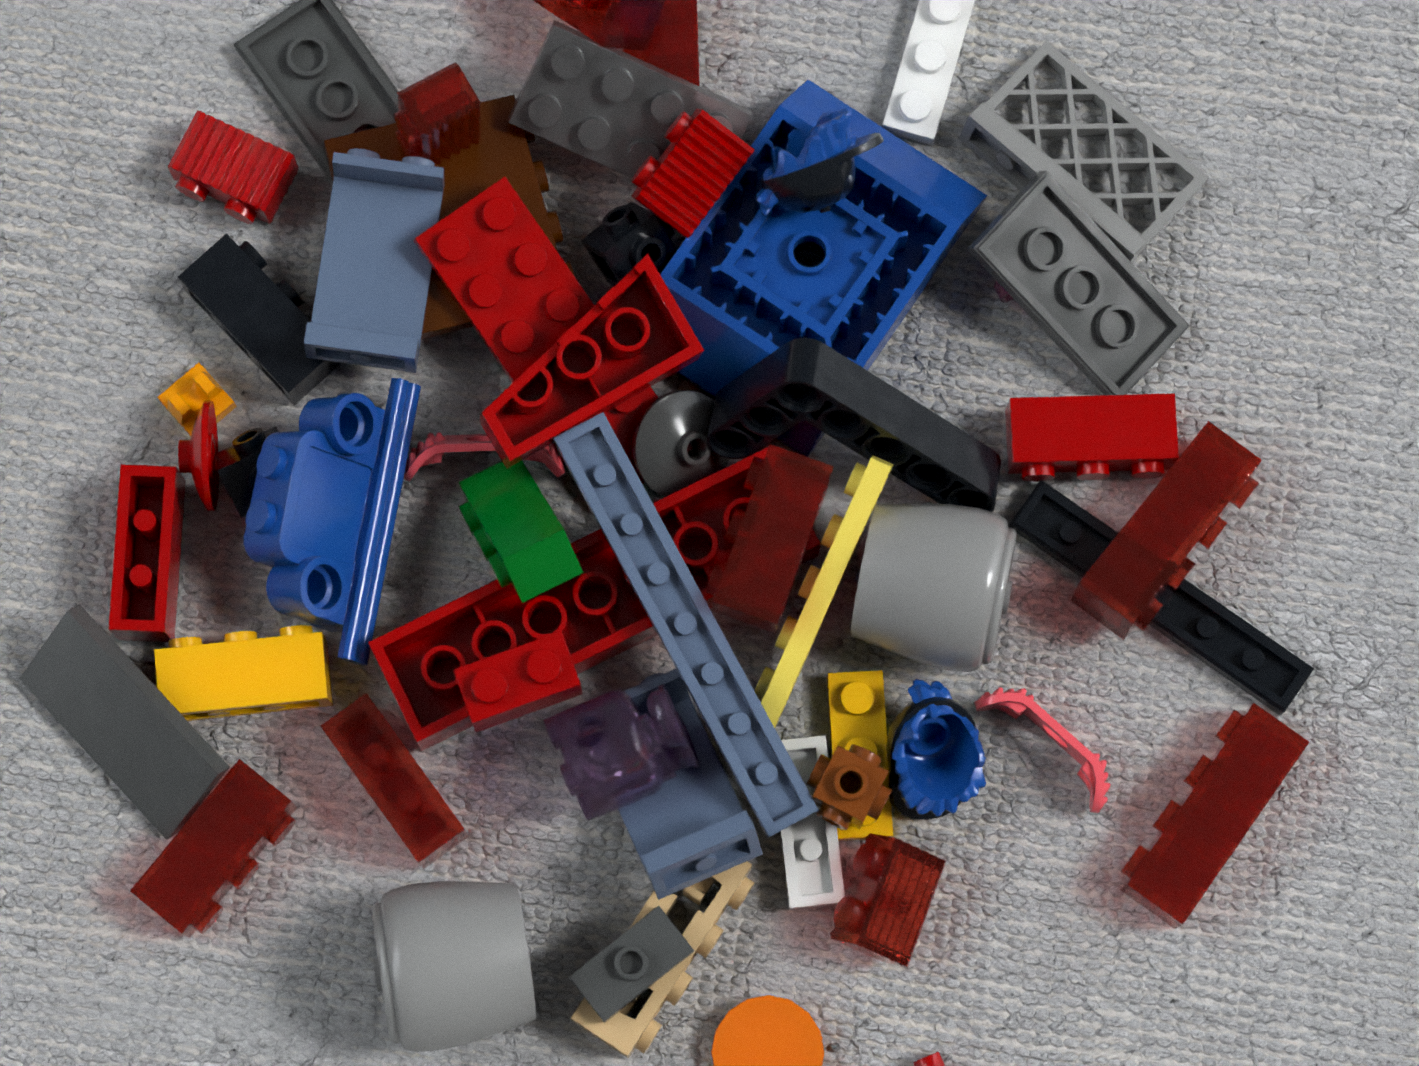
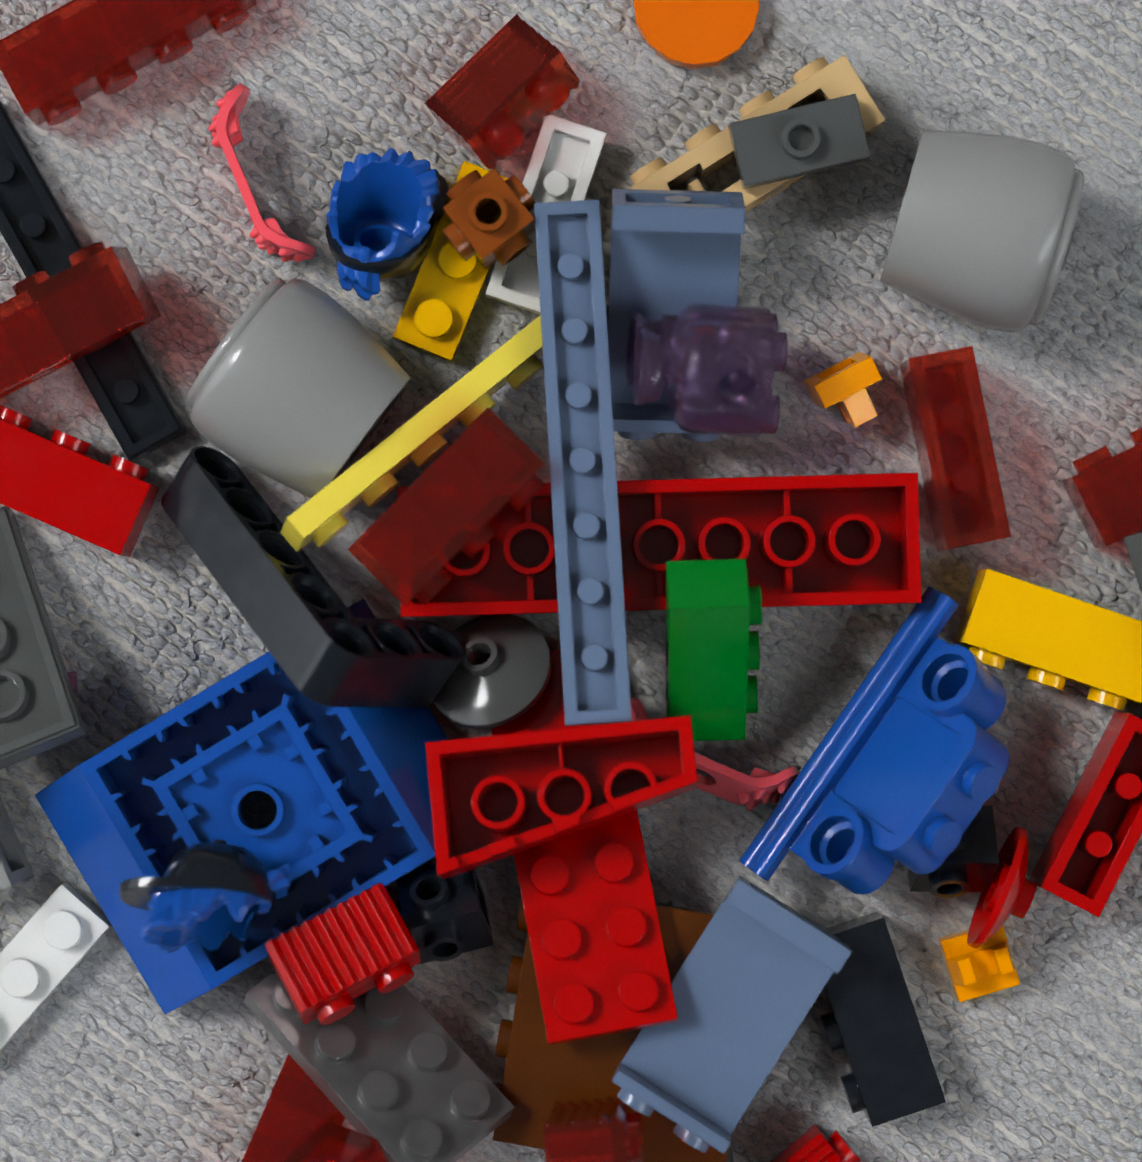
camera: 155 degrees left, 10 degrees up
(506, 796) = (846, 387): none -> light orange tile
(518, 681) = (787, 478): red brick -> none

